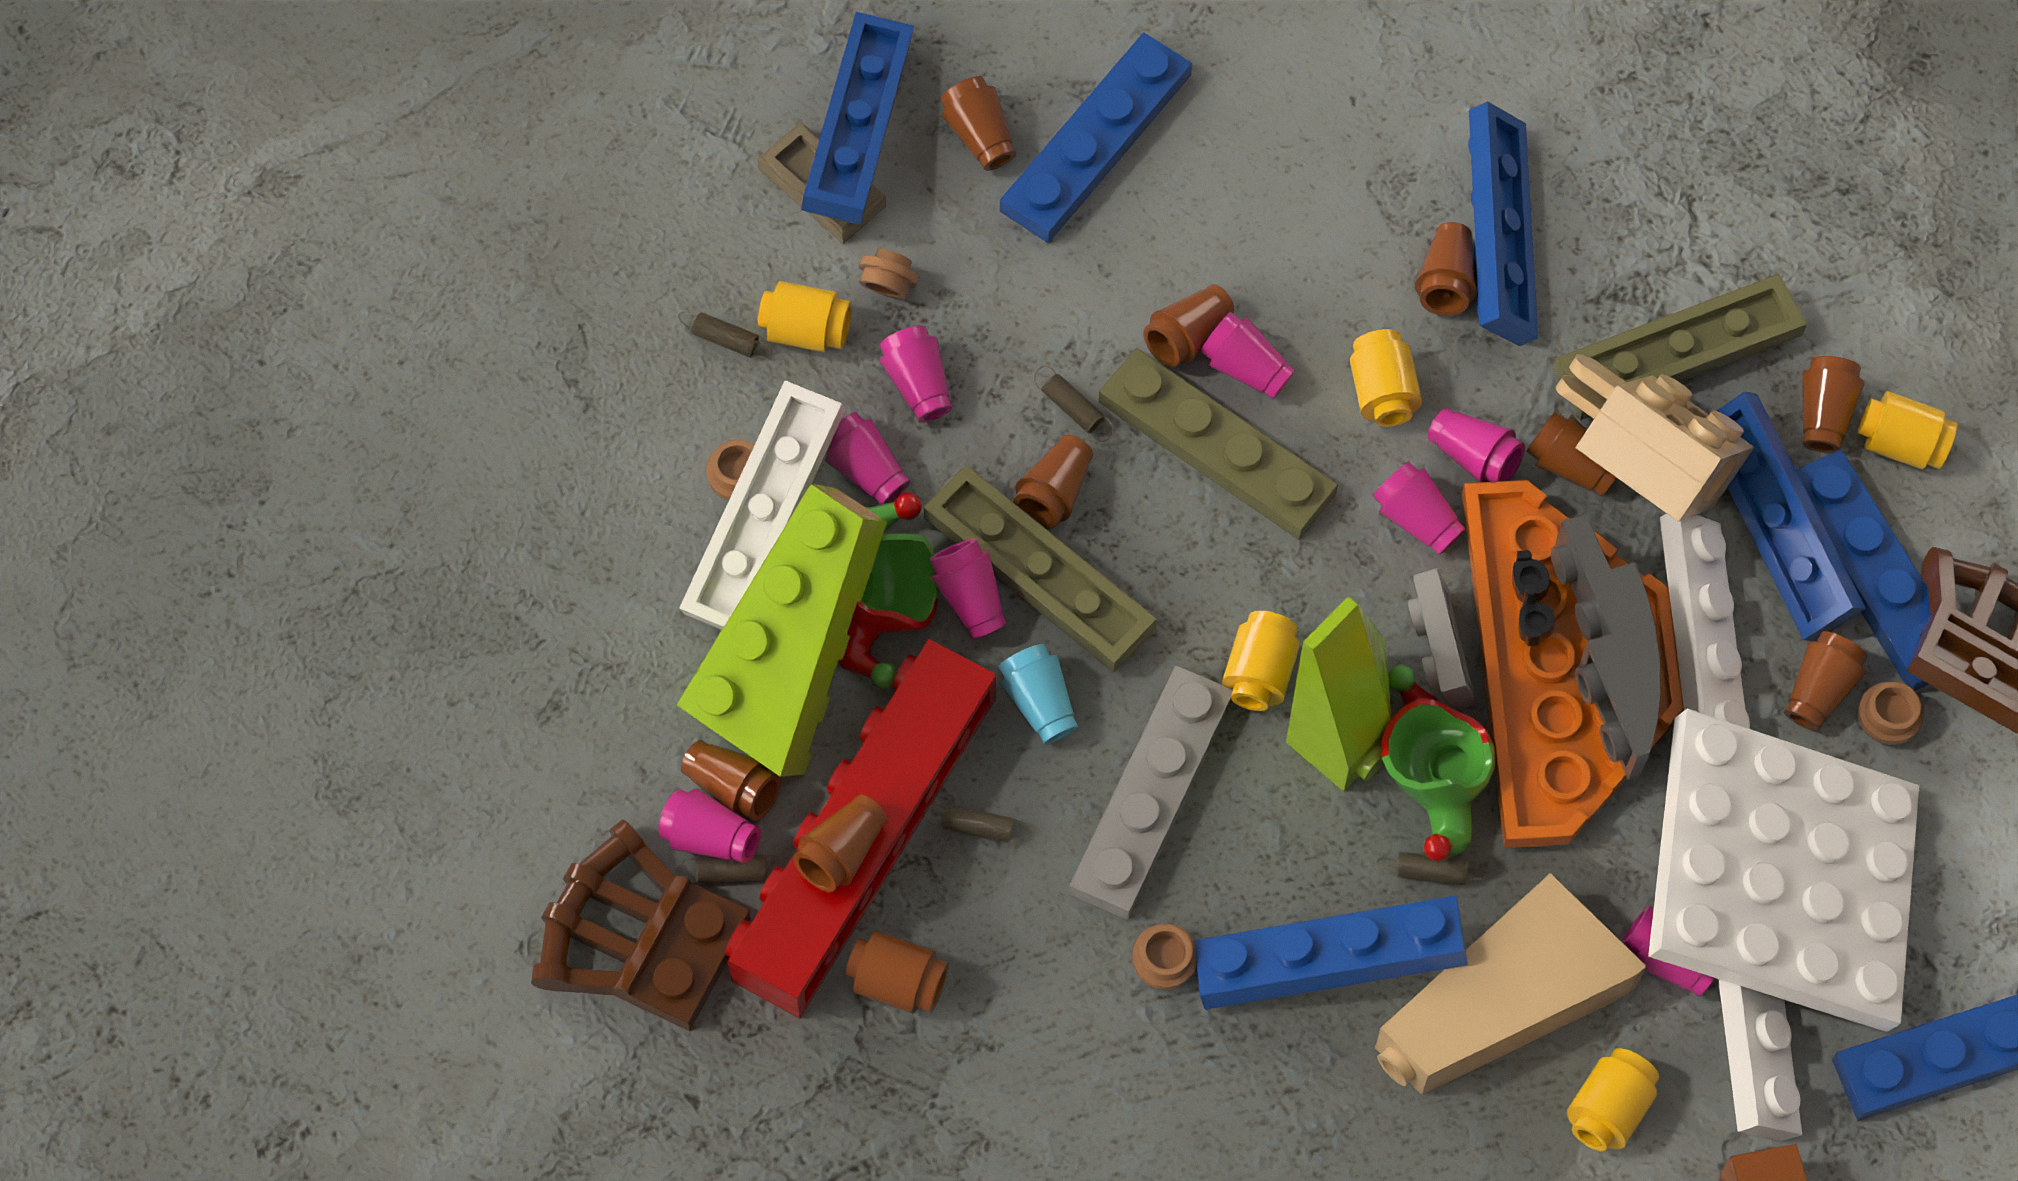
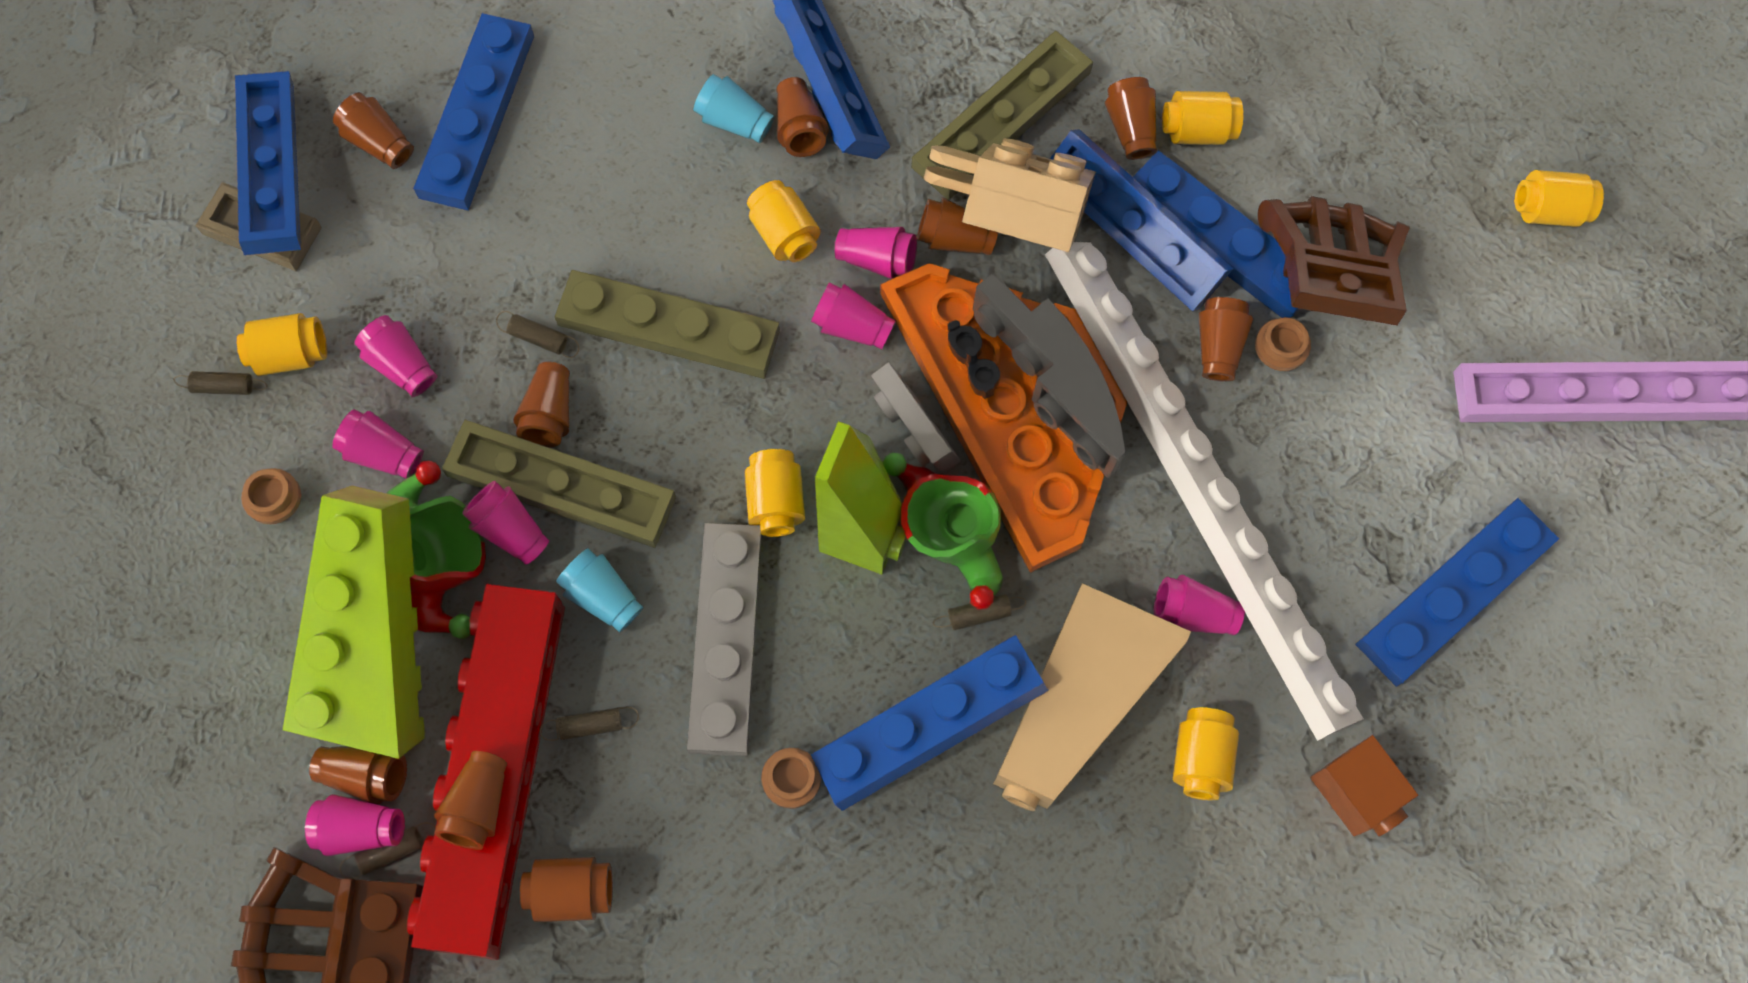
camera: 25 degrees left, 5 degrees up
(763, 500) = (301, 473): white plate -> none
(888, 274) = (340, 282): medium nougat plate -> none
(1184, 326) = (606, 236): dark orange cone -> none
(1247, 356) = (665, 244): dark pink cone -> none
(1378, 235) = (732, 109): none -> medium azure cone
(1785, 871) = (1264, 508): white plate -> none

